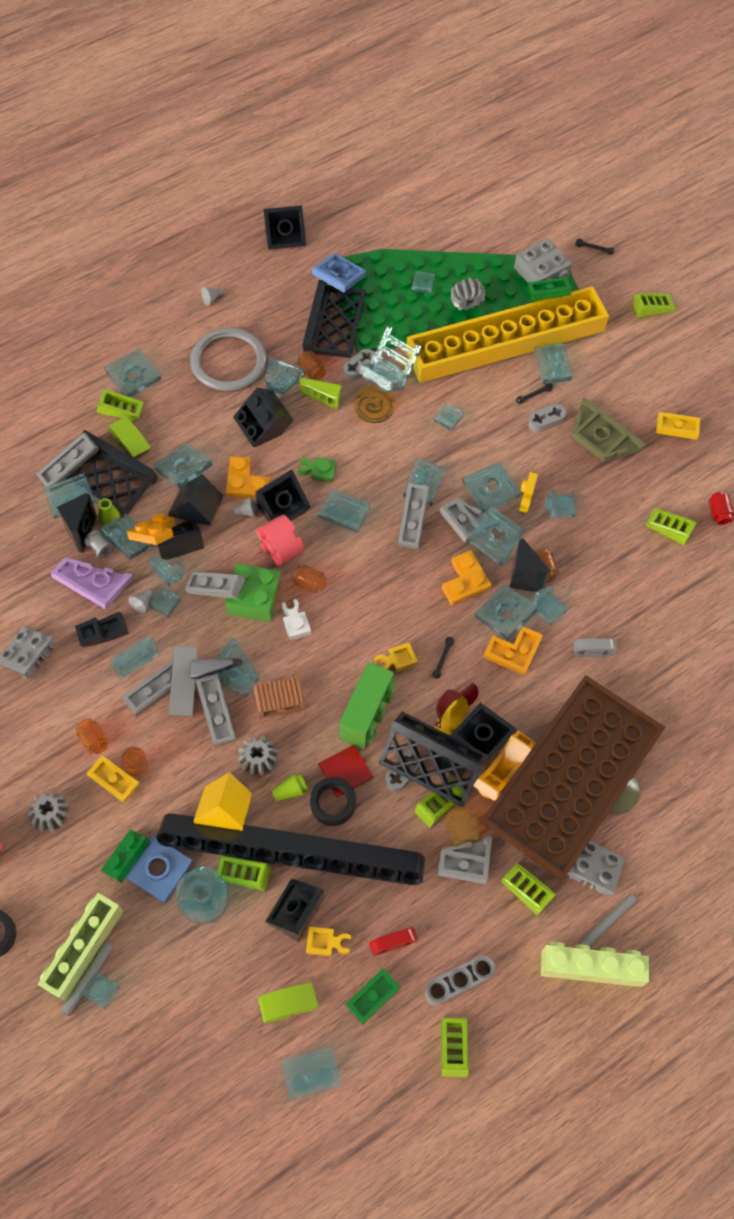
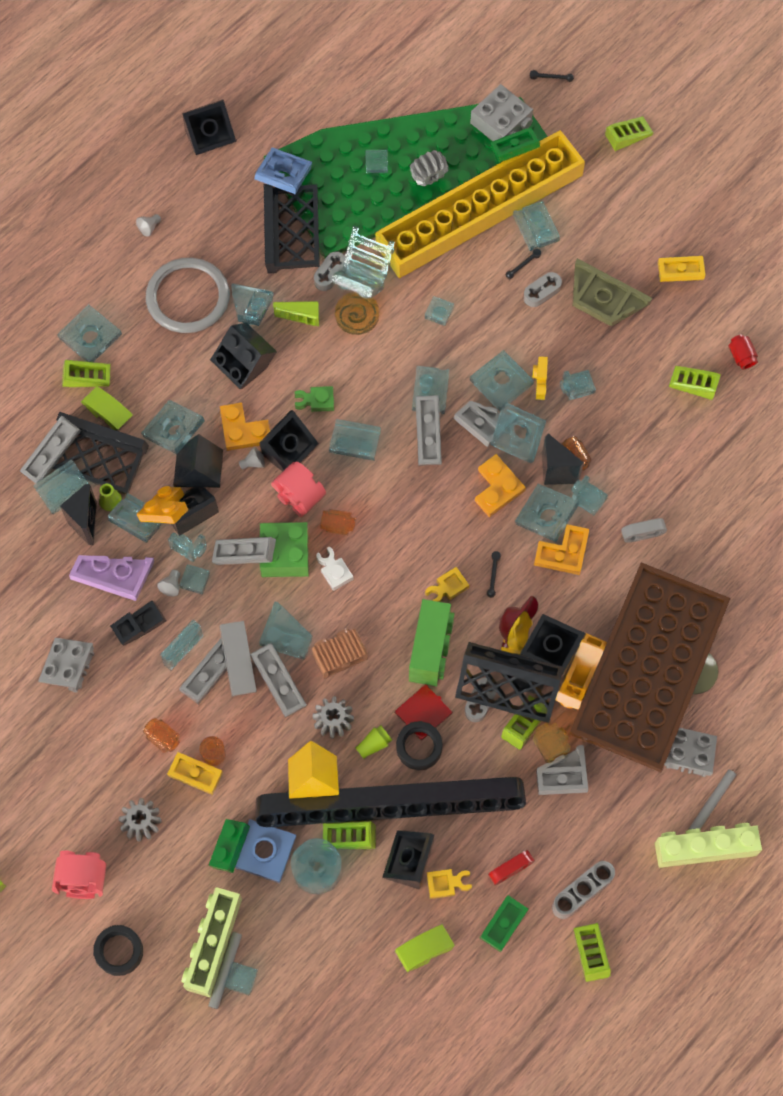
camera: 10 degrees left, 5 degrees up
(98, 544) = (109, 533): light grey bush -> none
(207, 667) = (255, 640): slope -> none
(311, 1073) = (463, 1007): clear light blue plate -> none
(312, 365) = (279, 284): clear orange brick -> none
(521, 894) = (639, 782): lime slope -> none

